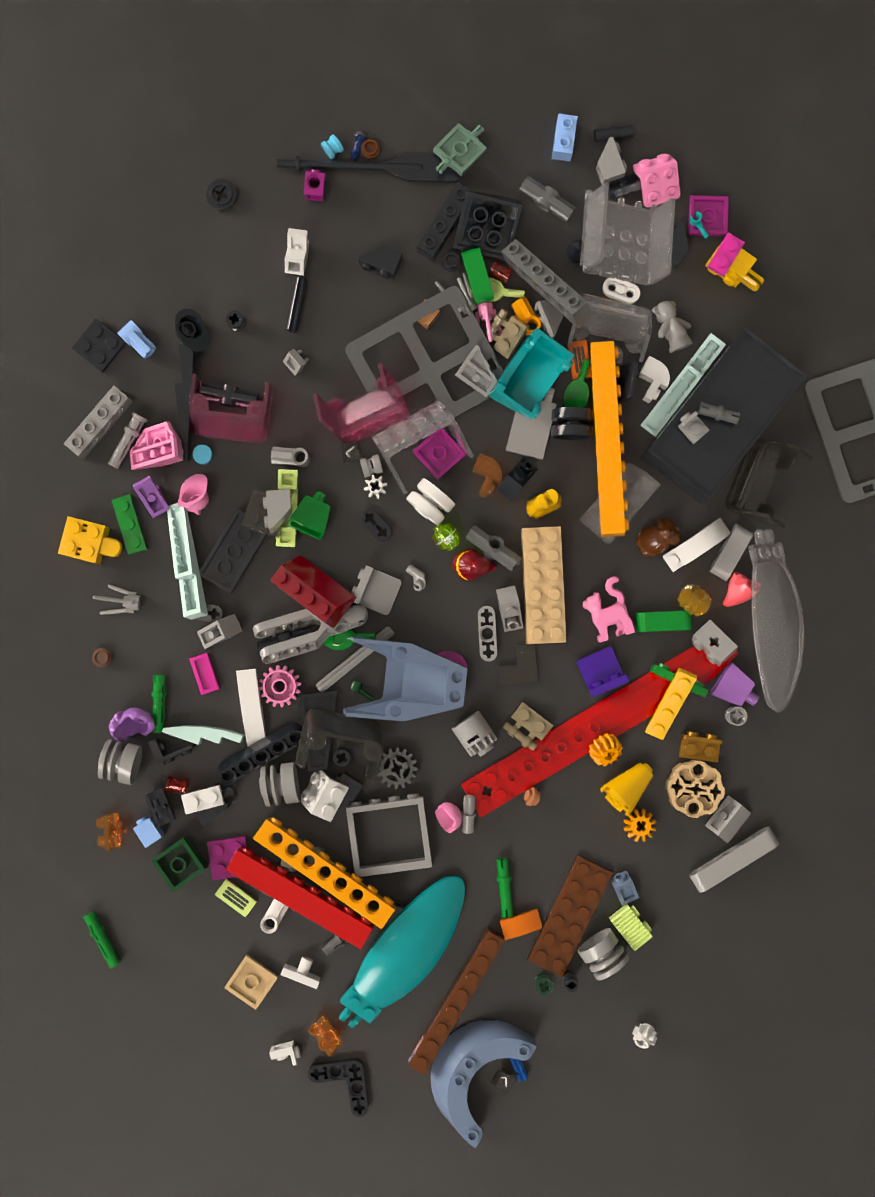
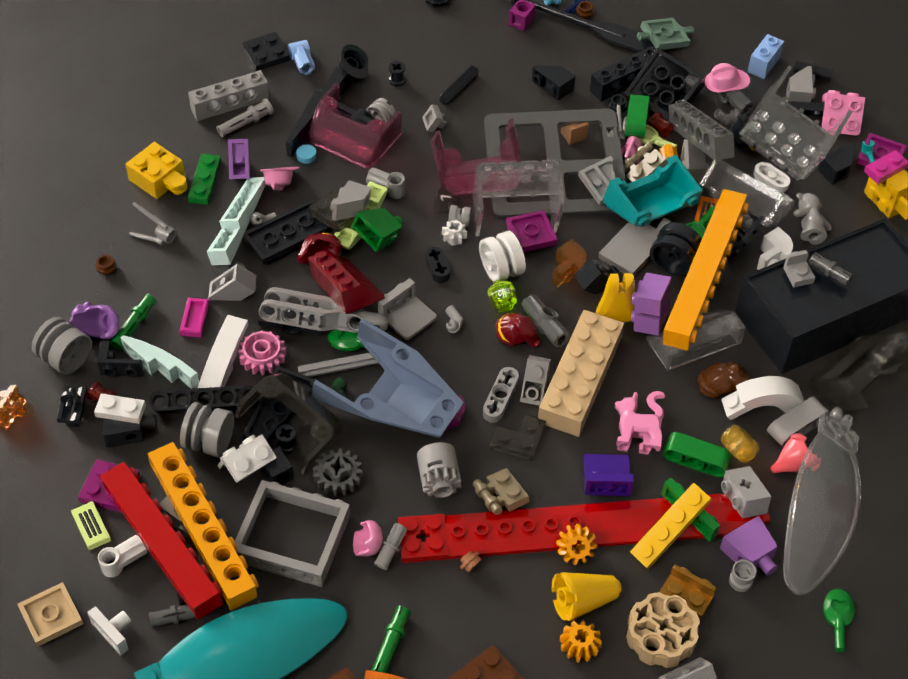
camera: 25 degrees right, 35 degrees down
(148, 831) = (45, 423): light blue brick -> none
(156, 447) = (270, 129): bright pink wedge -> none
(180, 863) = (56, 461): dark green brick -> none
(204, 550) = (258, 218): none -> light grey arm
(246, 380) = (381, 110): none -> light grey wheel
(269, 558) = (318, 243): none -> dark red hair
(297, 251) = (482, 48): white brick -> none
(542, 191) = (726, 78): none -> bright pink piece
(555, 235) = (727, 118): none -> clear arm
(575, 496) = (651, 303): none -> medium lavender piece
(814, 710) = (839, 613): none -> green piece

